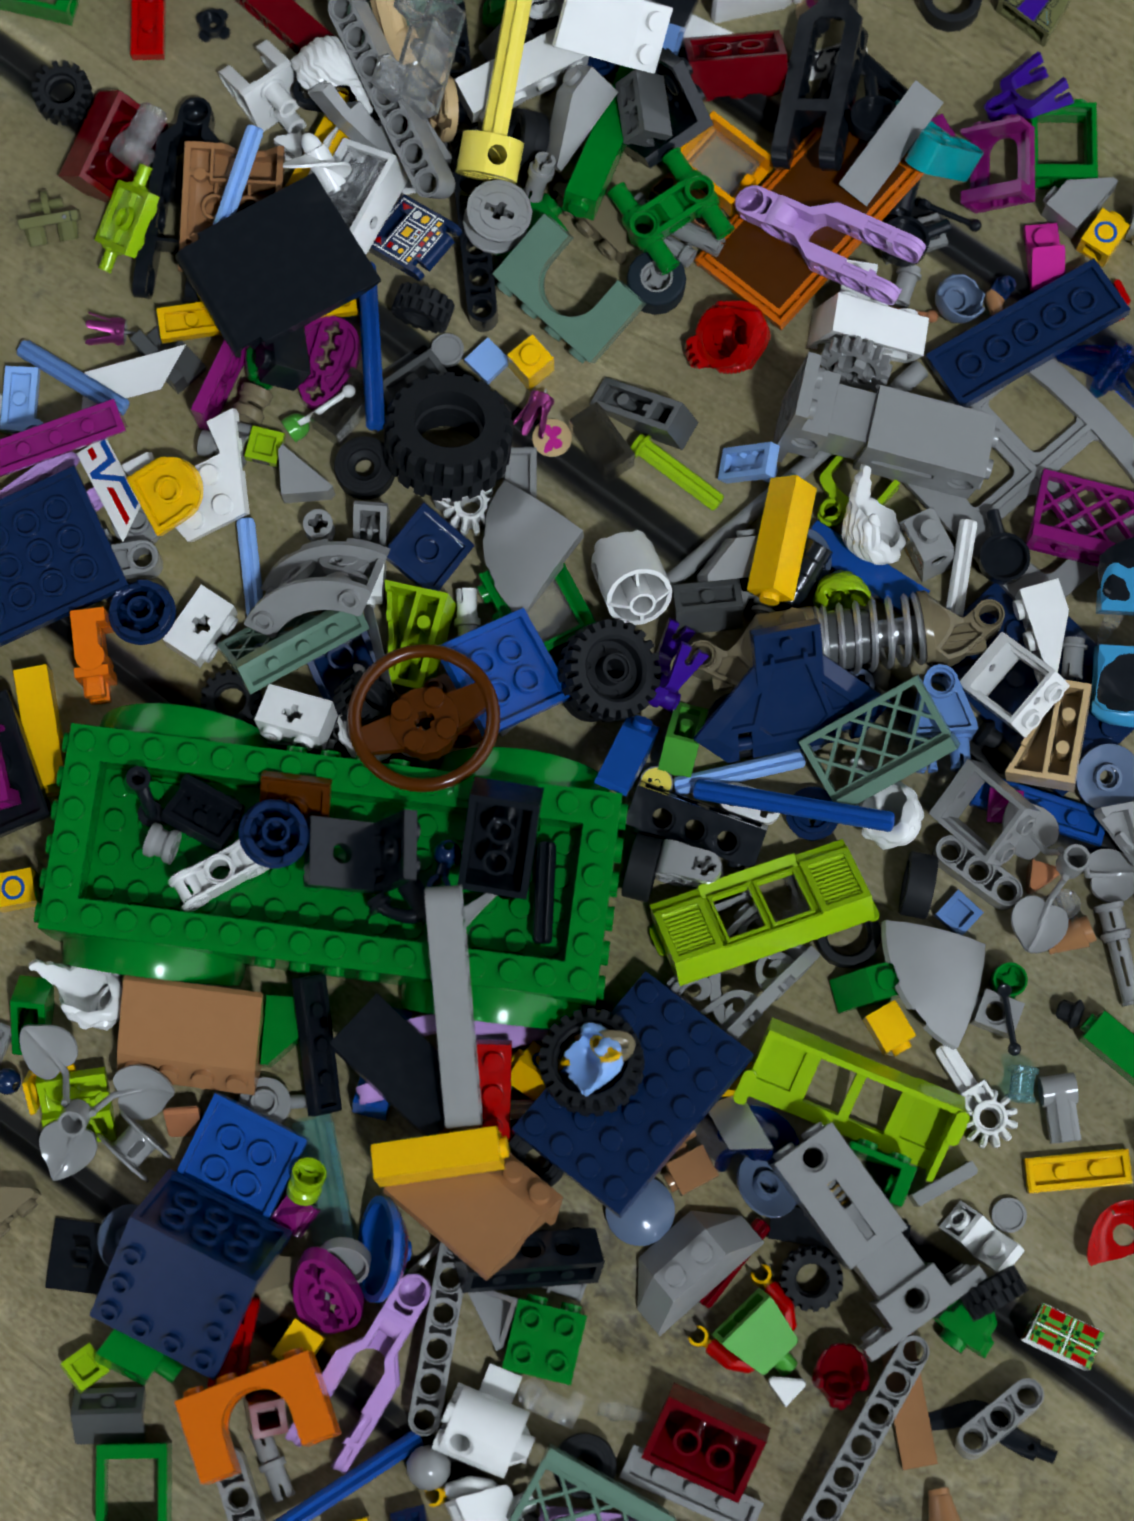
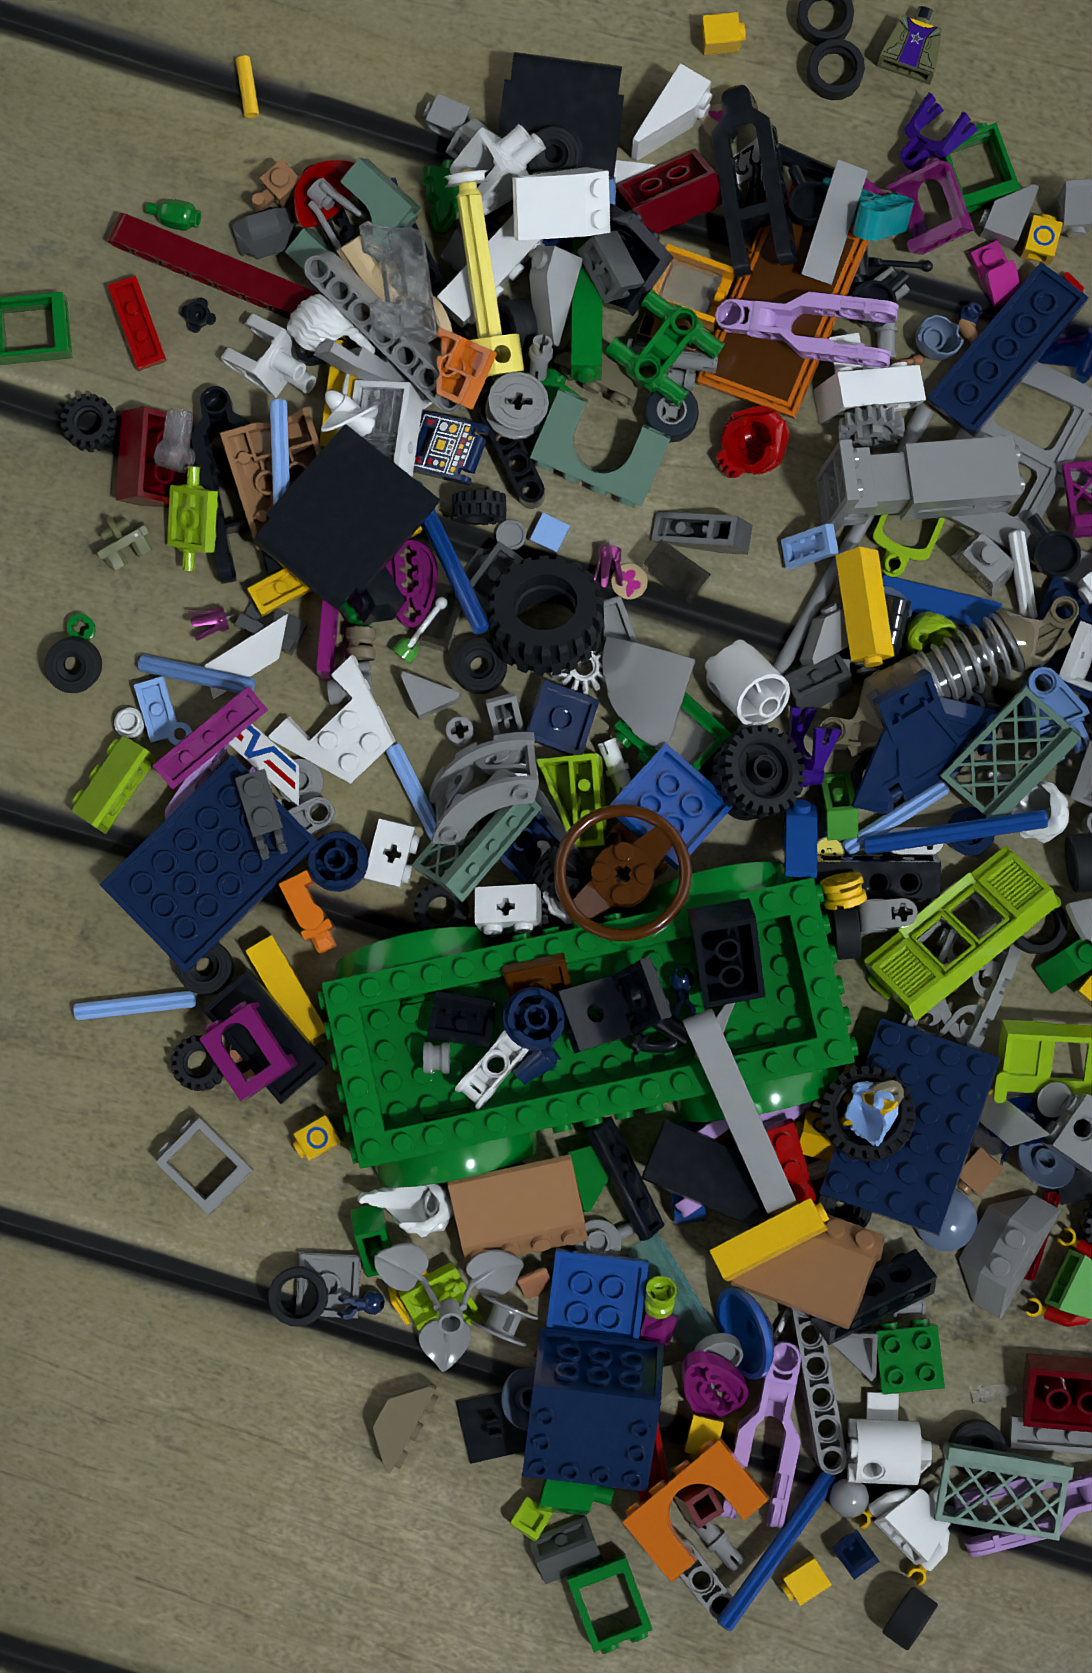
camera: 20 degrees left, 5 degrees up
(81, 531) = (261, 810): none -> dark grey hinge
(137, 783) = (400, 1012): black plant -> none
(168, 492) = (319, 747): yellow tile -> none
(264, 446) = (385, 676): lime plate -> none
(264, 885) = (536, 1063): none -> dark blue cone
(291, 144) = (312, 401): white slope -> none
(450, 154) = (462, 368): none -> orange slope
(530, 362) = (589, 522): yellow brick -> none
(539, 1399) = (931, 1408): clear leg -> none
(544, 892) = (776, 985): black axle -> none
(652, 822) = (843, 890): none -> yellow wheel
(677, 472) = (749, 574): lime axle -> none
(796, 1121) = (1051, 1098): none -> white sticker
(868, 526) = (935, 567): white hair -> none

